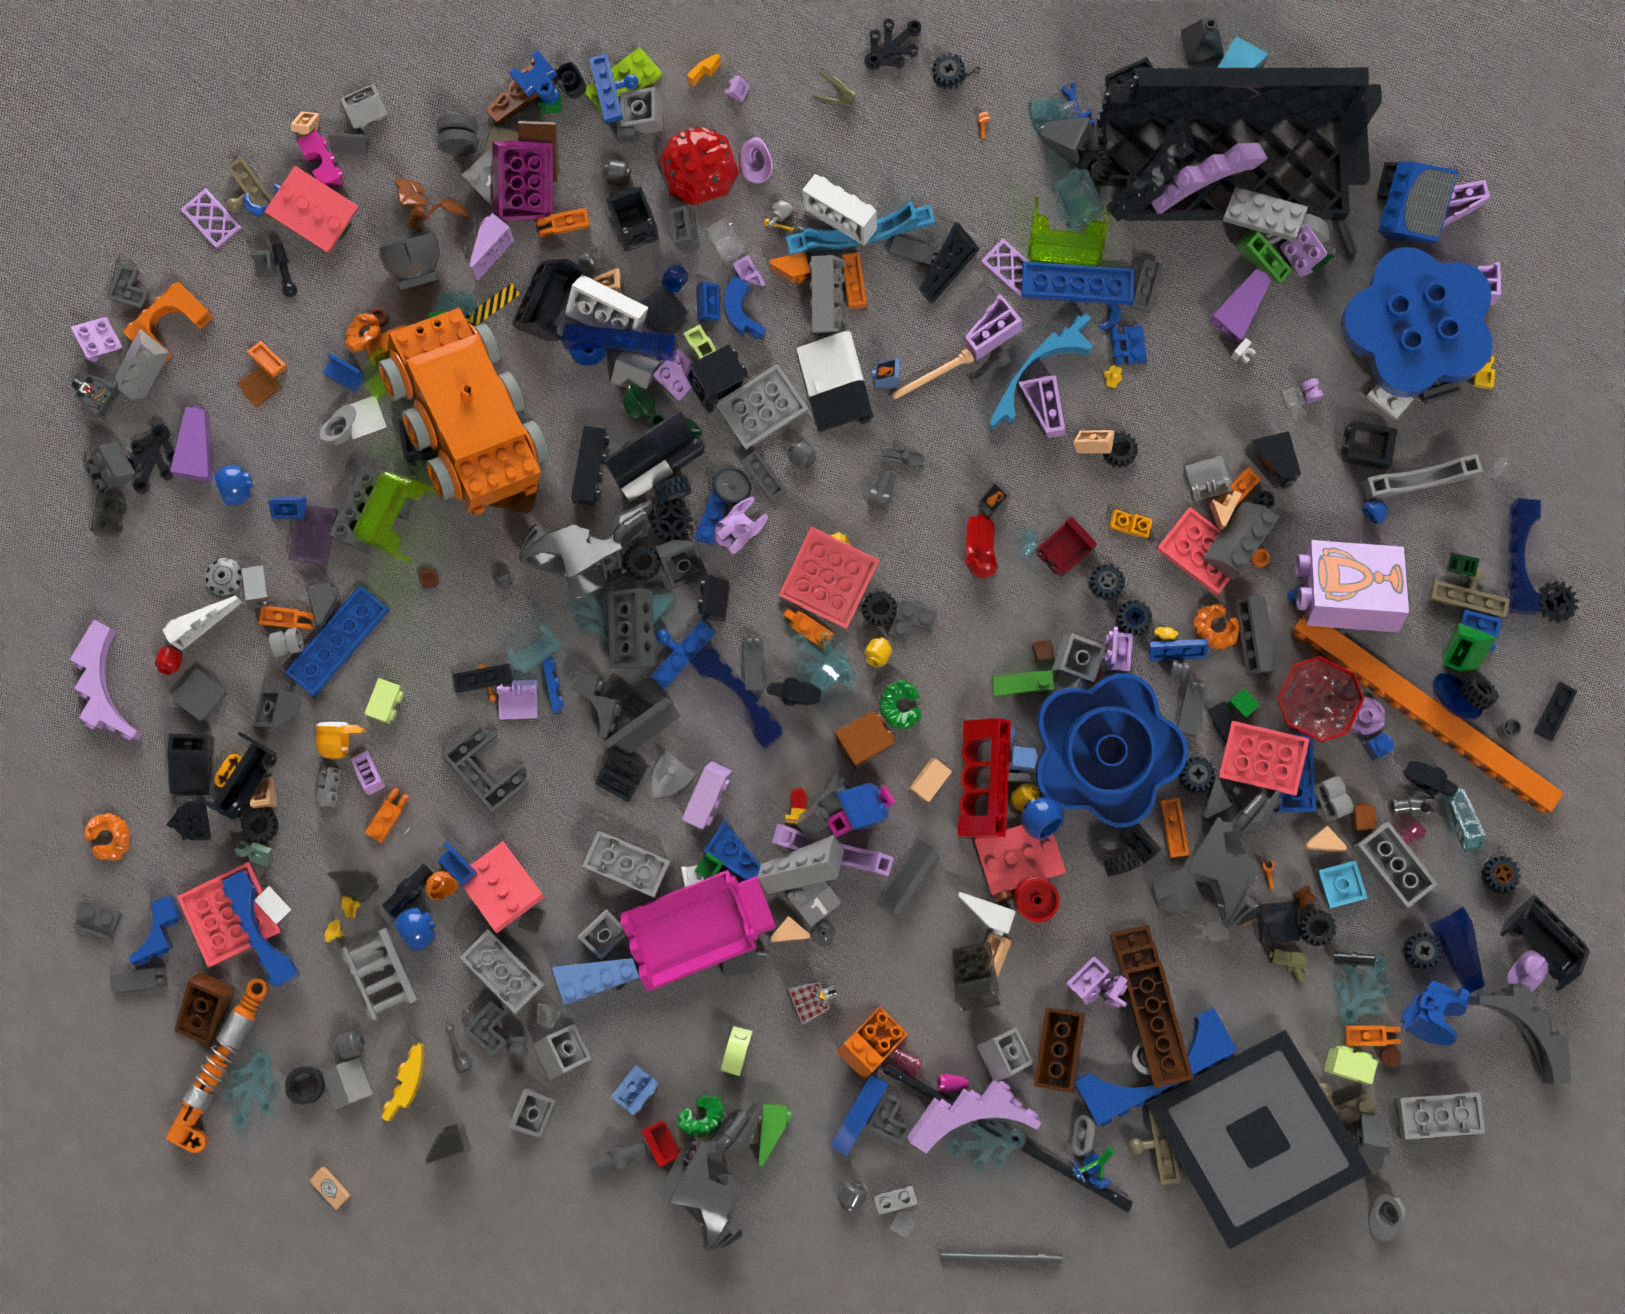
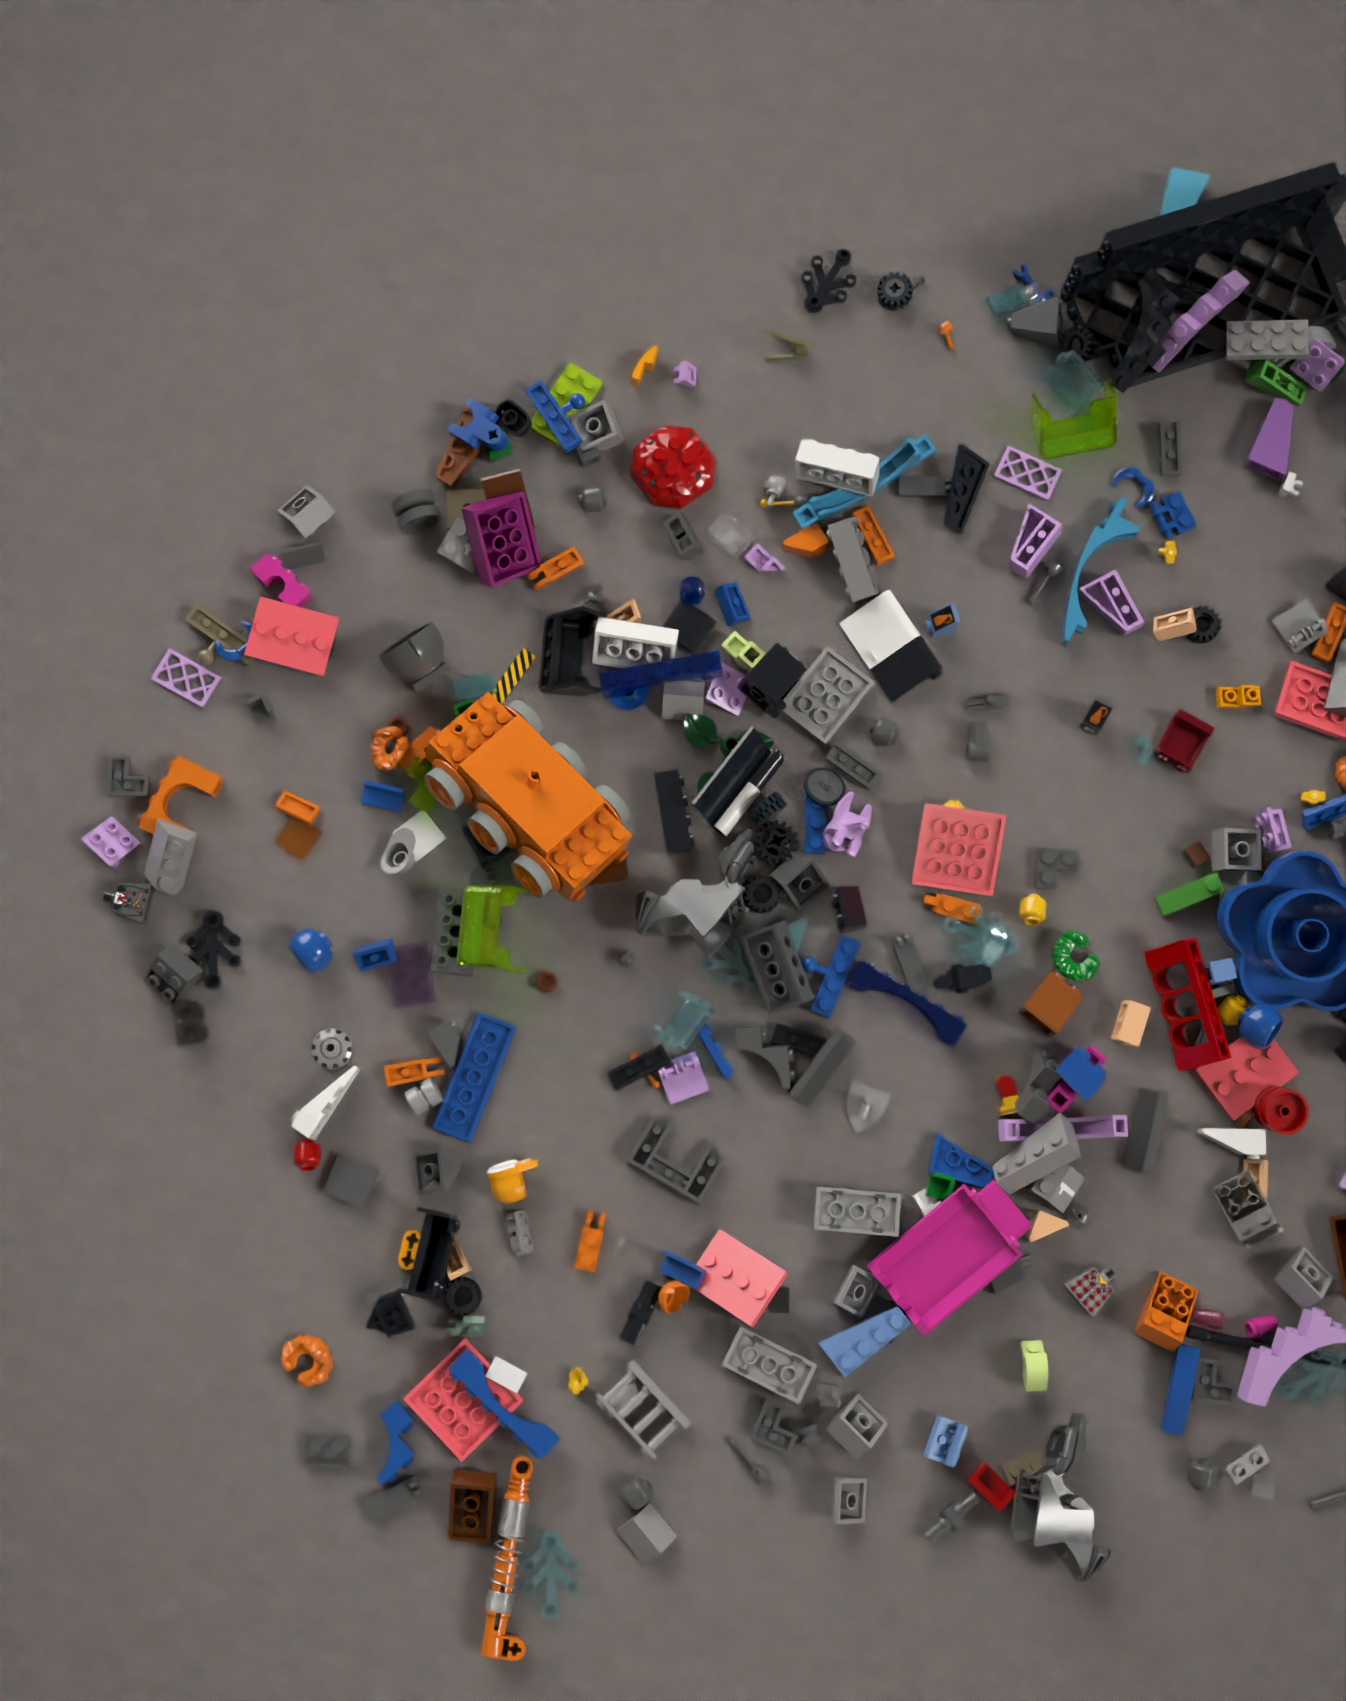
camera: 20 degrees left, 0 degrees up
(91, 658) = (224, 1177): lavender arch -> none
(190, 763) = (368, 1256): black slope -> none
(193, 447) = (254, 925): medium lavender slope -> none
(254, 587) = (371, 1049): hinge -> none
(289, 288) = (294, 726): black pin -> none
(289, 1085) = (601, 1567): black tyre -> none
(305, 123) = (252, 549): light nougat slope -> none
(329, 1187) = (667, 1648): light nougat slope -> none
(349, 906) = (585, 1349): yellow plant -> none
(356, 883) = (586, 1323): clear smoke slope -> none
(373, 783) = (567, 1216): lavender slope -> none
(383, 701) = (546, 1124): yellowish green brick -> none
(408, 195) = (401, 596): dark orange plant -> none
(411, 1075) = (710, 1504): yellow slope -> none
(415, 928) = (664, 1349): blue wheel -> none
(448, 1143) = (777, 1562): clear smoke slope -> none
(490, 244) = (491, 610): lavender slope -> none
(621, 774) = (816, 1120): black slope -> none
(637, 228) = (633, 550): black container -> none
(707, 795) = (913, 1113): lavender wedge -> none
(709, 1123) = (1035, 1450): green piece -> none
(734, 297) = (765, 607): blue arch -> none
(756, 161) = (732, 443): lavender hat -> none
(773, 1125) = (1098, 1435): bright green slope -> none
(879, 597) = (1009, 873): black tyre -> none
(963, 358) = (1013, 579): light nougat piece -> none
(980, 547) = (1096, 767): red hair -> none
(1077, 283) = (1100, 468): blue tile -> none
(1111, 576) = (1240, 758): black wheel -> none
(1125, 75) = (1077, 239): black hinge -> none
(1127, 619) = (1270, 796): black wheel -> none
(1202, 41) = (1139, 182): dark grey slope -> none
(1223, 513) = (1329, 656): light nougat slope -> none

